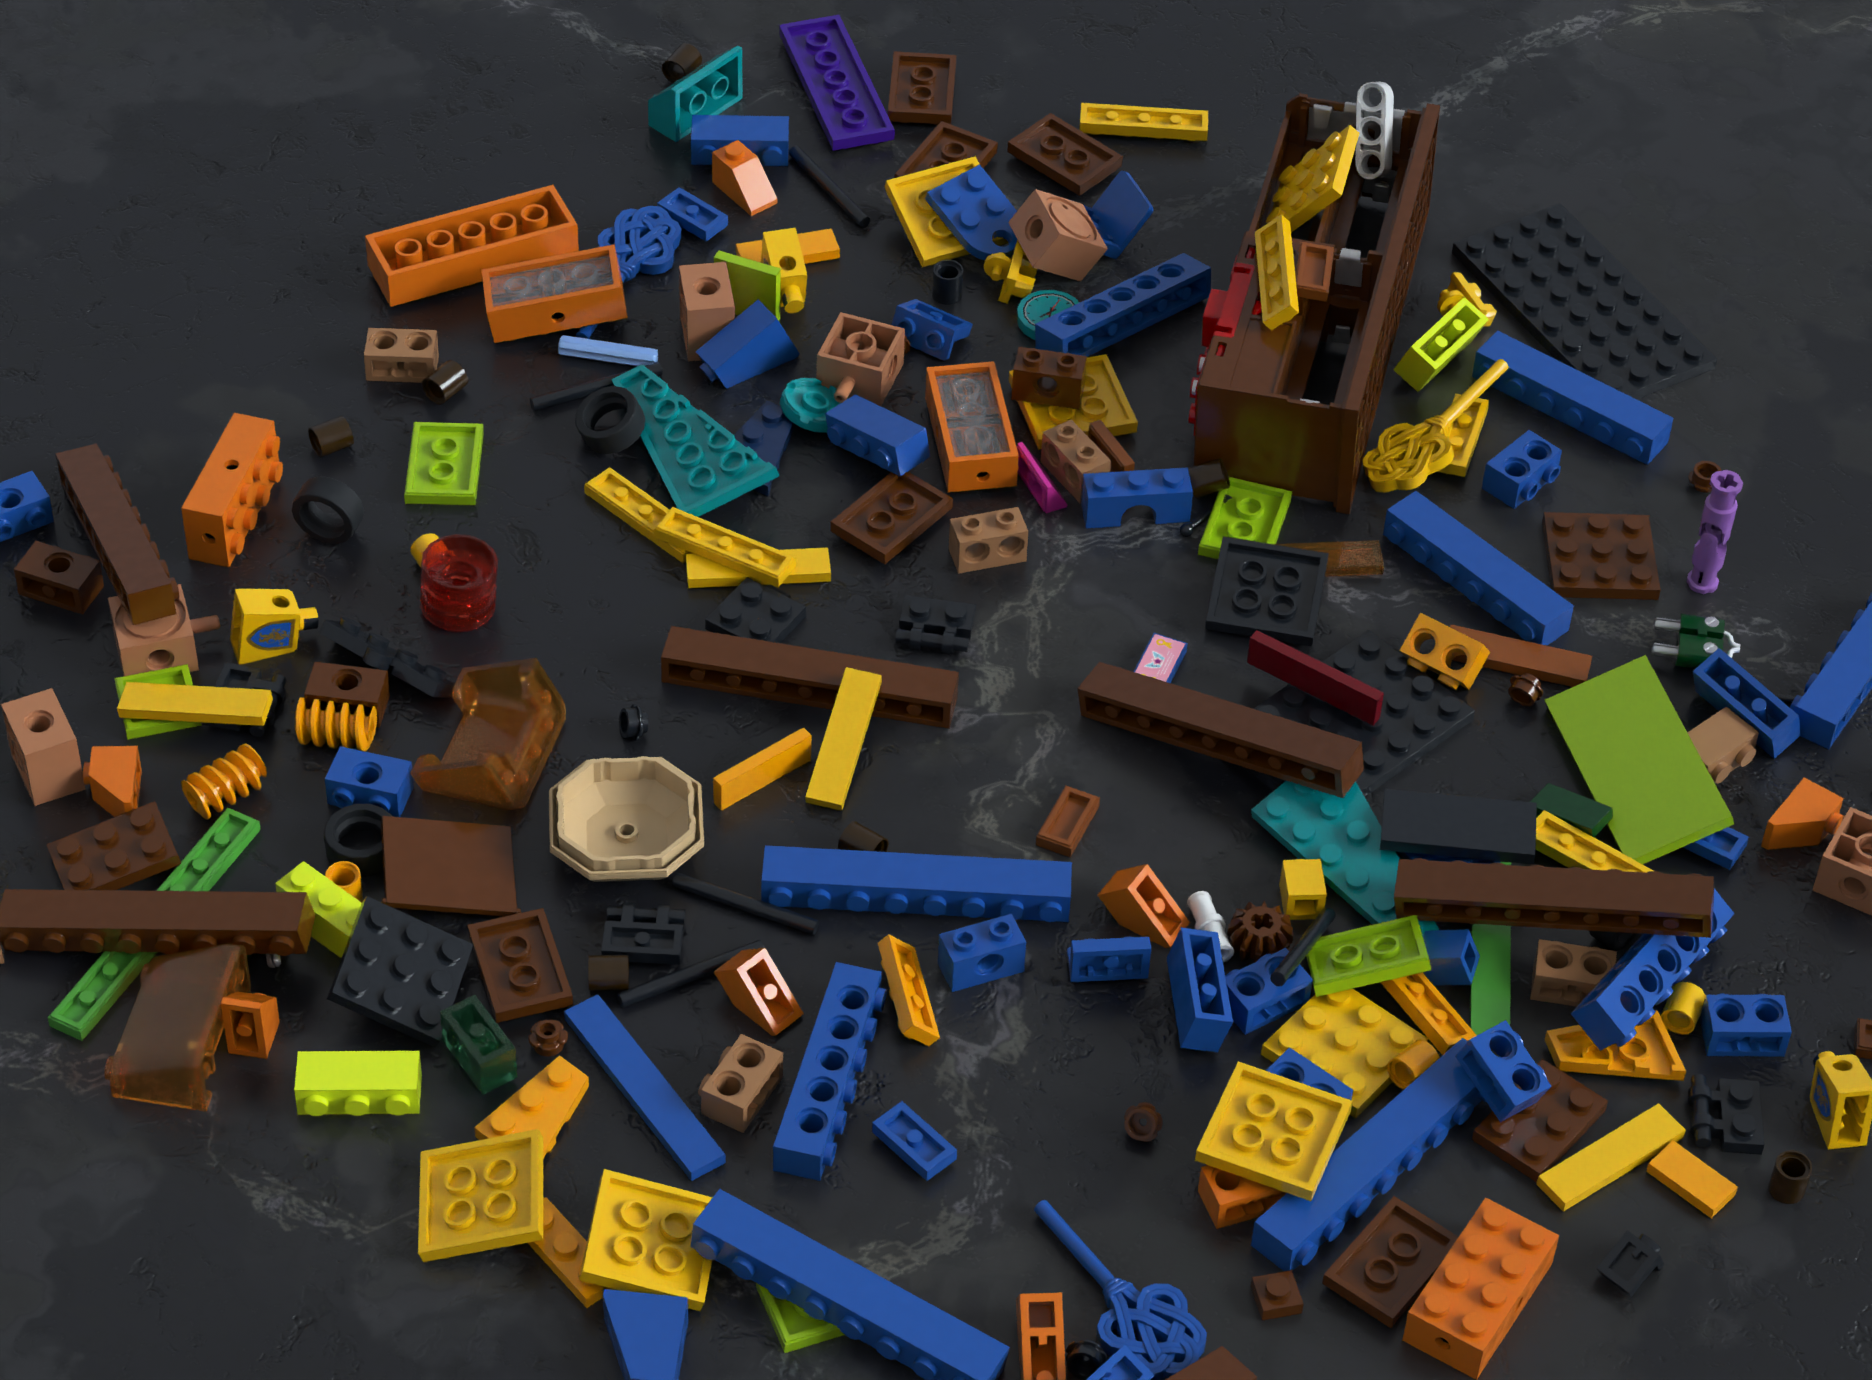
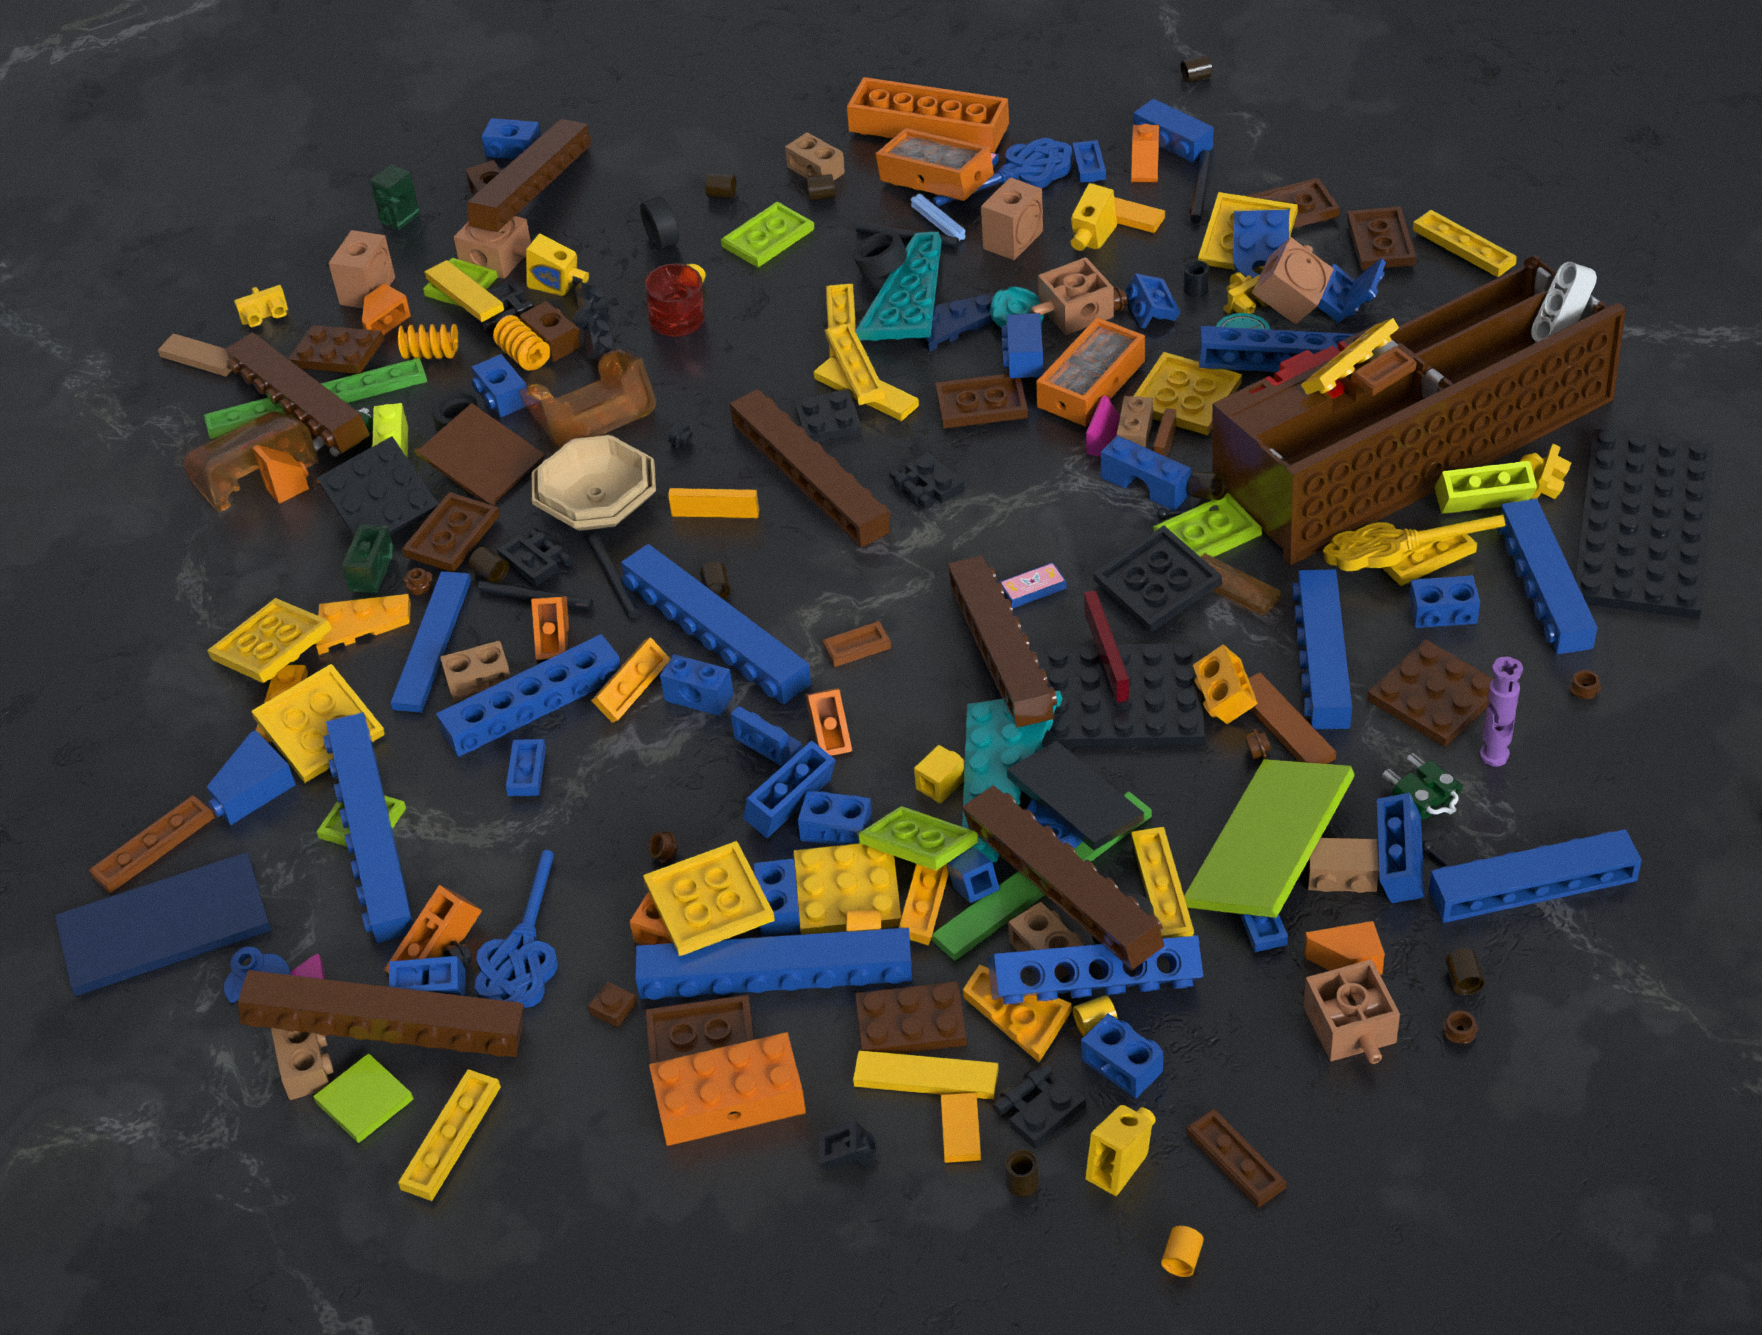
camera: 50 degrees right, 0 degrees up
(231, 490) = (621, 183): orange brick -> none
(346, 876) = (416, 431): light orange beam -> none
(358, 1082) = (293, 542): neon yellow brick -> none
(702, 92) = (1180, 87): teal slope -> none
(746, 347) = (1015, 253): blue slope -> none
(751, 282) = (1056, 217): lime tile -> none
(836, 82) = (1282, 124): dark purple plate -> none
(843, 739) = (776, 511): yellow tile -> none
(922, 88) = (1336, 152): reddish brown plate -> none
(988, 540) = (1016, 446): medium nougat brick -> none
(1048, 377) = (1171, 365): reddish brown brick -> none
(1209, 920) = (855, 760): white pin -> none
(1259, 931) = (878, 781): reddish brown gear -> none
(1302, 946) = (880, 804): black bar -> none
(1315, 180) = (1473, 315): yellow plate -> none
(1496, 1074) = (890, 962): blue brick -> none
(1573, 808) = (1185, 840): dark green tile -> none

